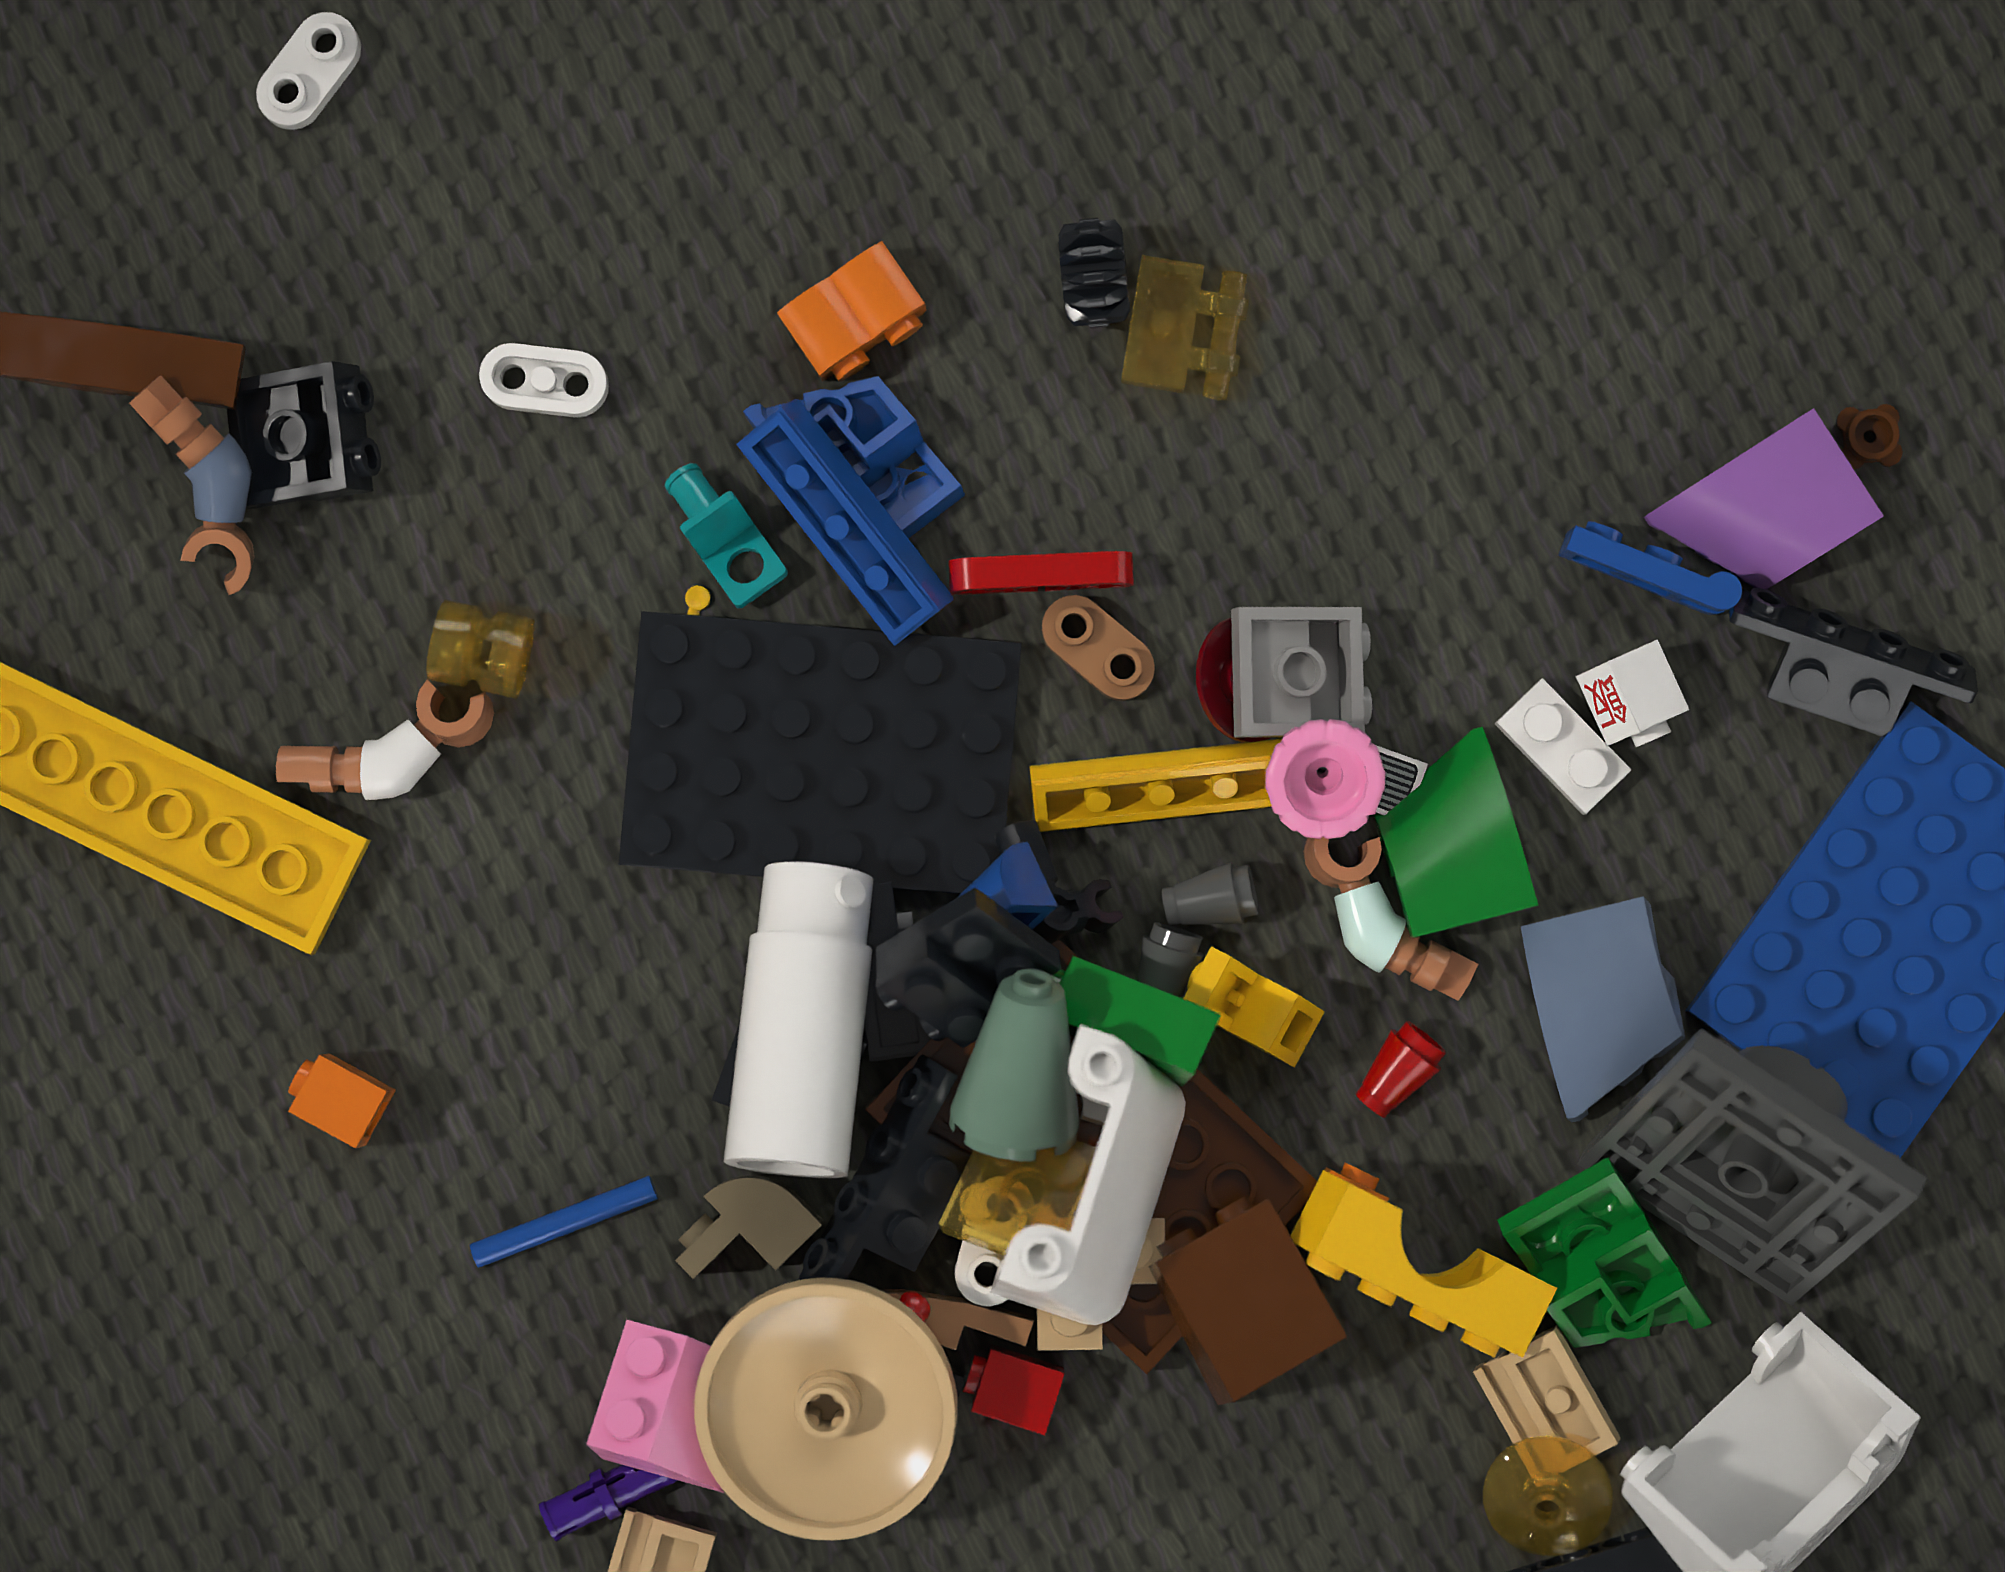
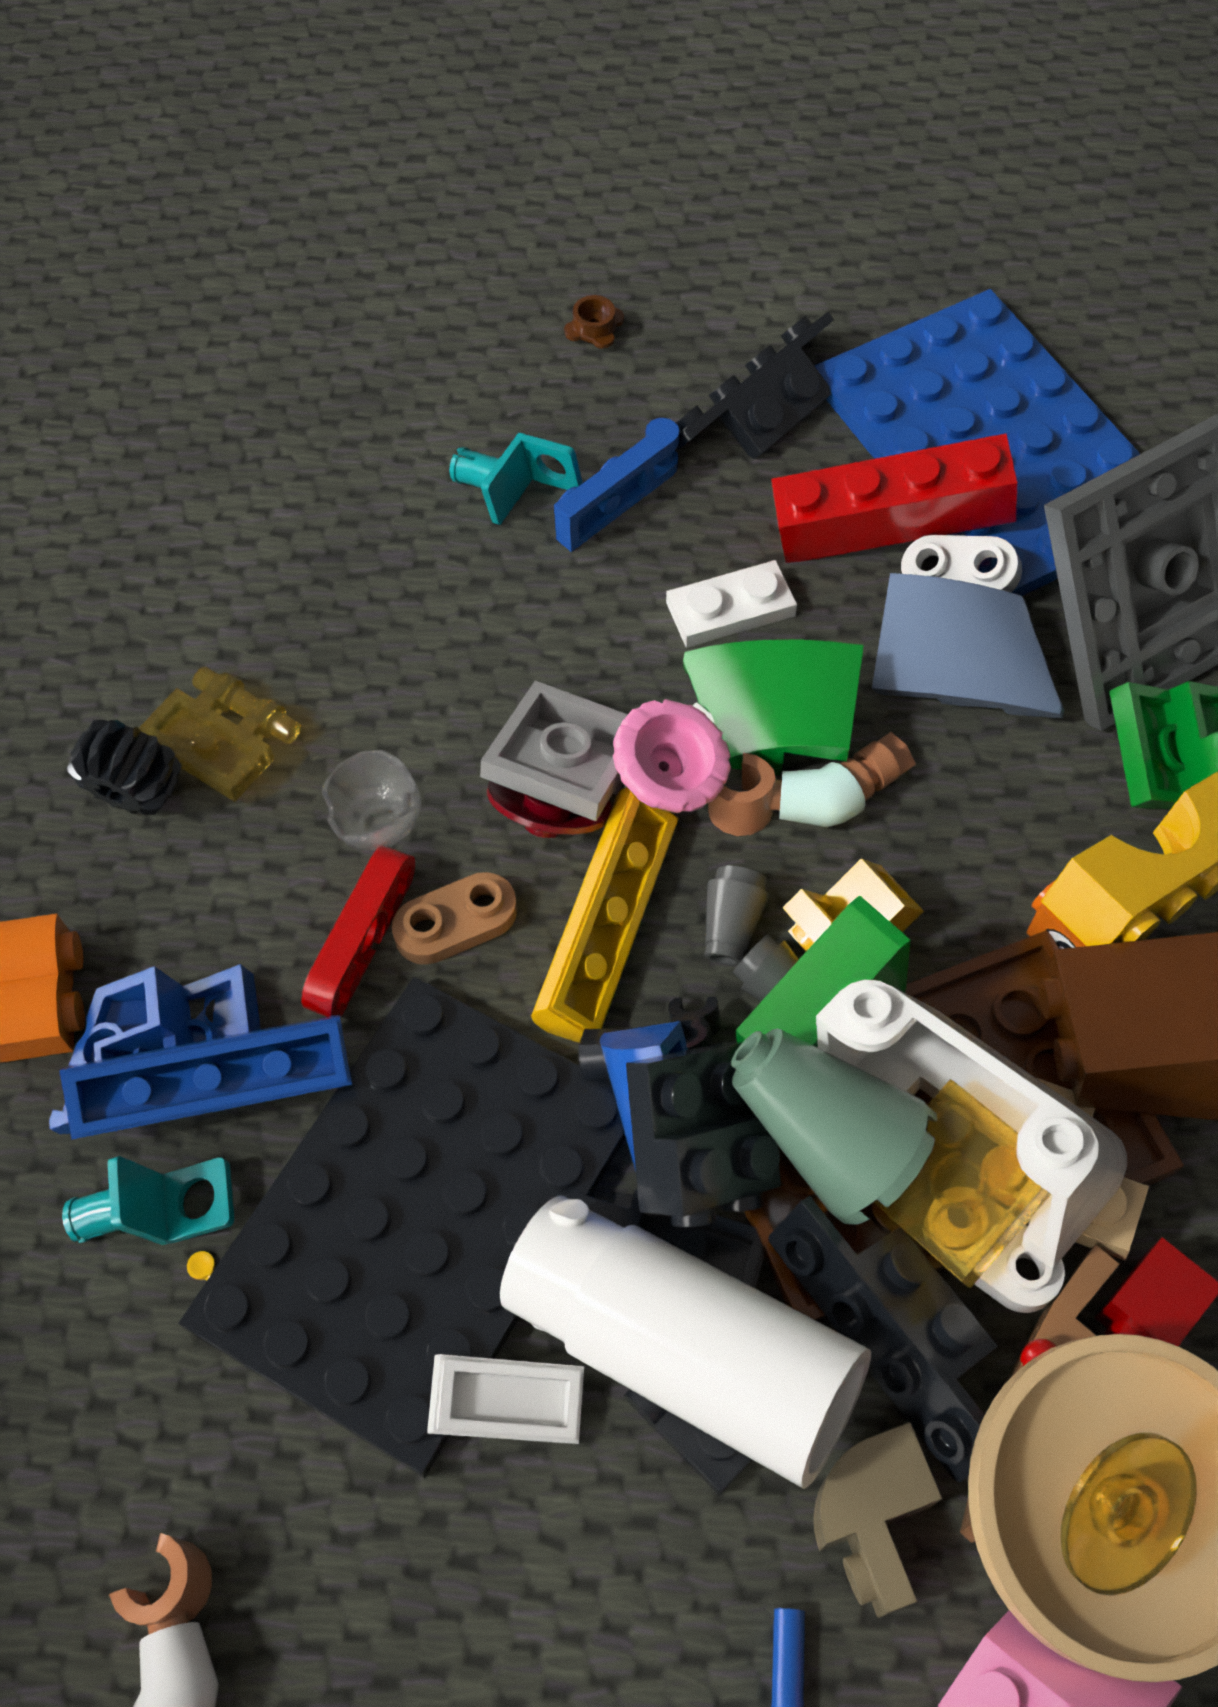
camera: 65 degrees left, 25 degrees down
(459, 642) = (93, 1537): clear yellow wheel -> none
(700, 902) = (505, 1399): none -> white tile
(802, 1406) = (1128, 1513): none -> clear yellow dish
(1168, 517) = (371, 800): none -> clear hair
(1400, 1068) = (960, 826): red cone -> none
(1609, 449) = (507, 477): none -> teal bracket
(1633, 695) = (715, 528): white brick -> none
(1702, 957) = (961, 559): none -> white plate
(1740, 864) = (896, 499): none -> red brick
(1772, 505) = (611, 382): medium lavender slope -> none

